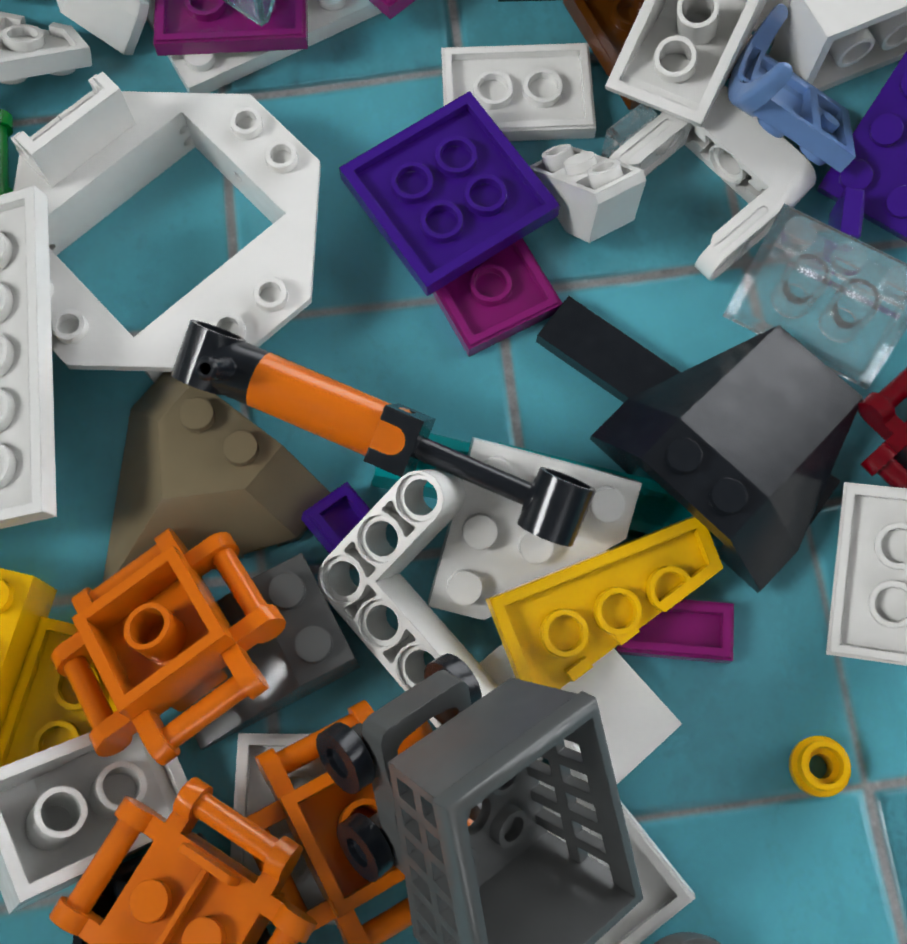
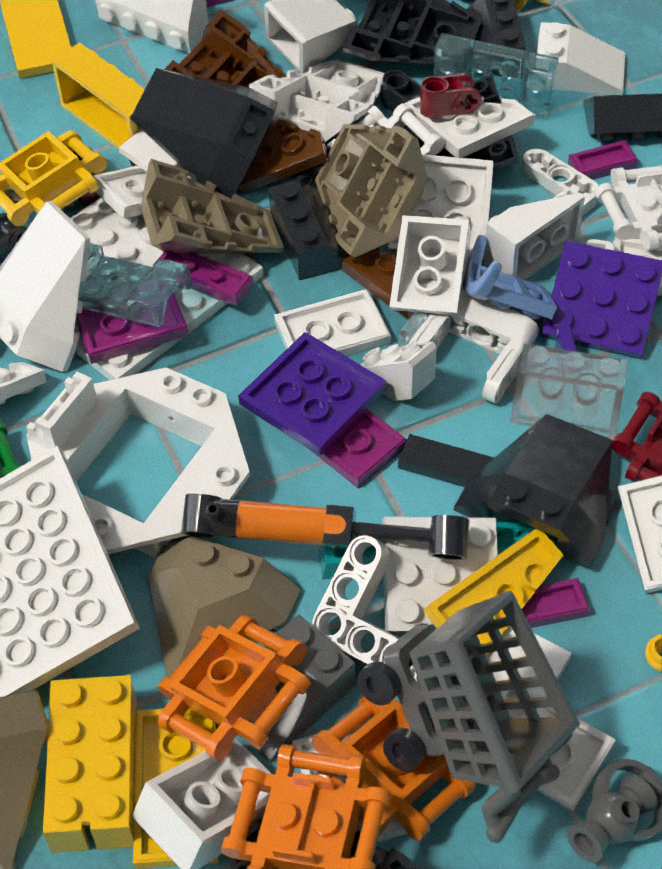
camera: 15 degrees left, 20 degrees down
(335, 516) = (307, 598): dark purple tile -> none

